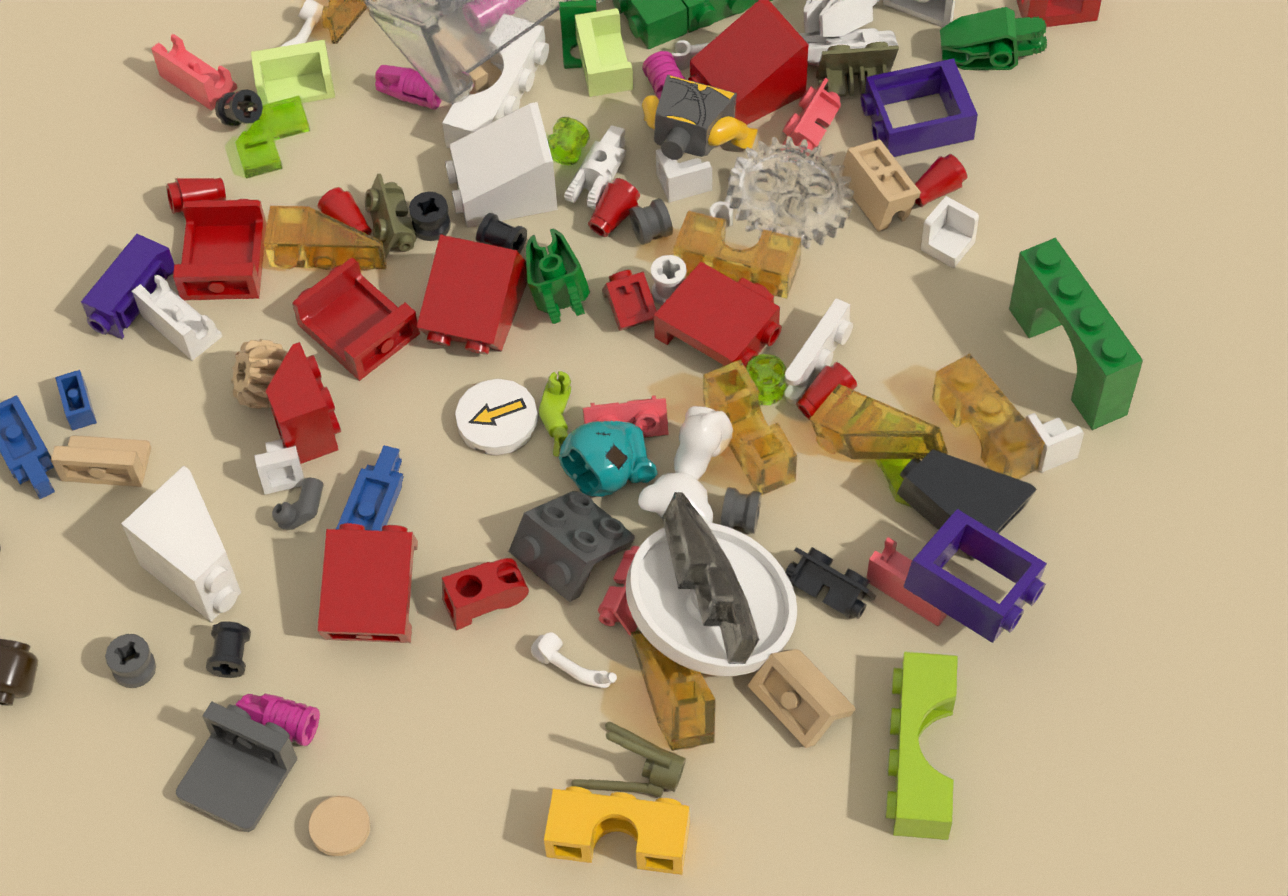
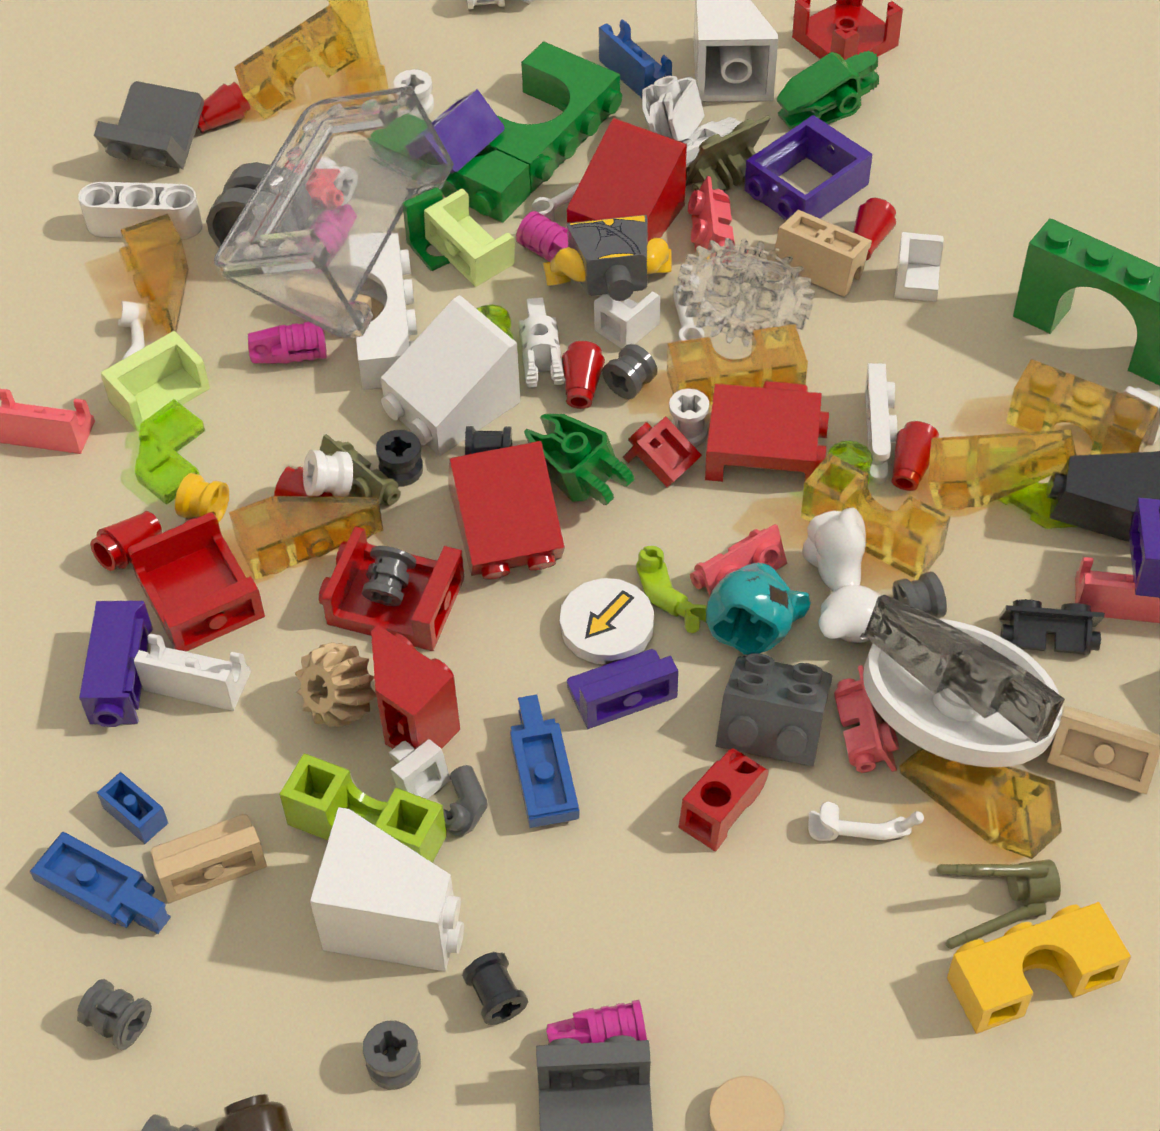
camera: 30 degrees left, 5 degrees down
(226, 495) = (320, 787): none -> lime arch
(243, 99) = (123, 422): black bush -> none
(265, 185) = (199, 497): none -> yellow wheel
(353, 307) = (388, 575): none -> dark grey bush
(356, 206) = (327, 473): none -> white wheel
(367, 584) = (608, 842): red panel -> none
(471, 474) = (624, 687): none -> dark purple panel

